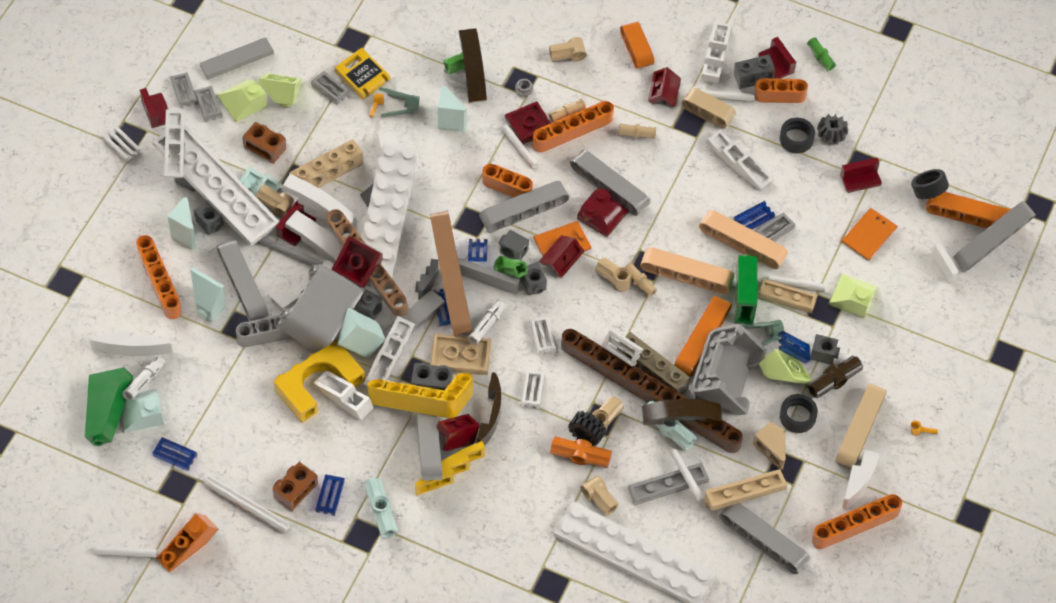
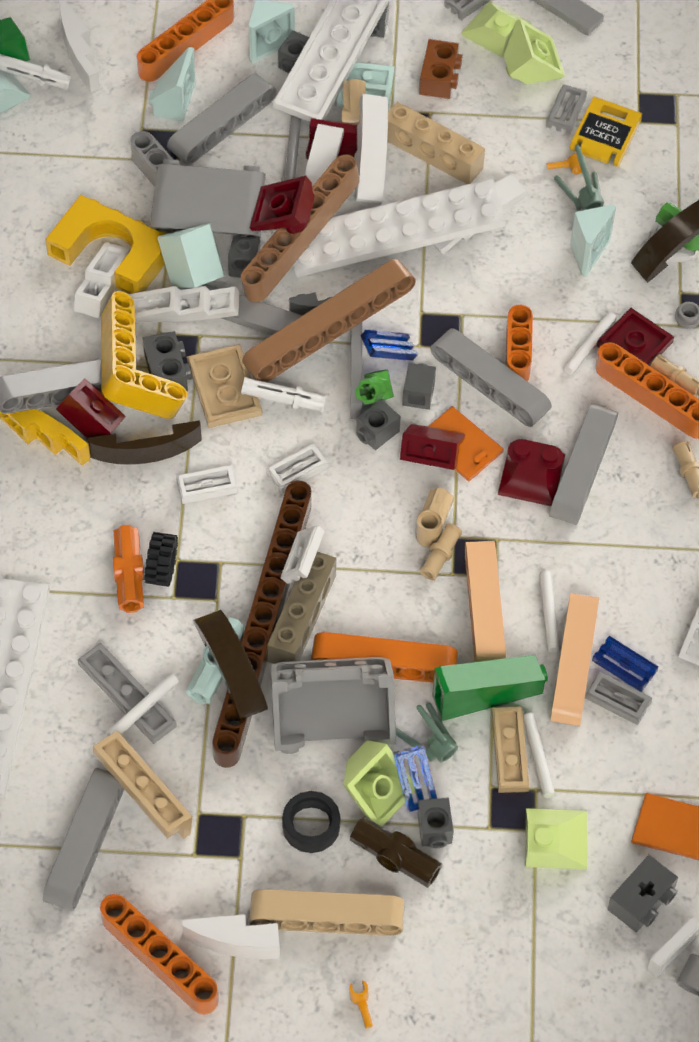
camera: 70 degrees right, 0 degrees up
(597, 491) = (73, 607): tan piece -> none
(609, 410) = (201, 580): tan piece -> none
(703, 241) = (549, 612): none -> white bar
(771, 443) = (242, 802): tan slope -> none
(907, 264) = (648, 879): none -> dark grey brick

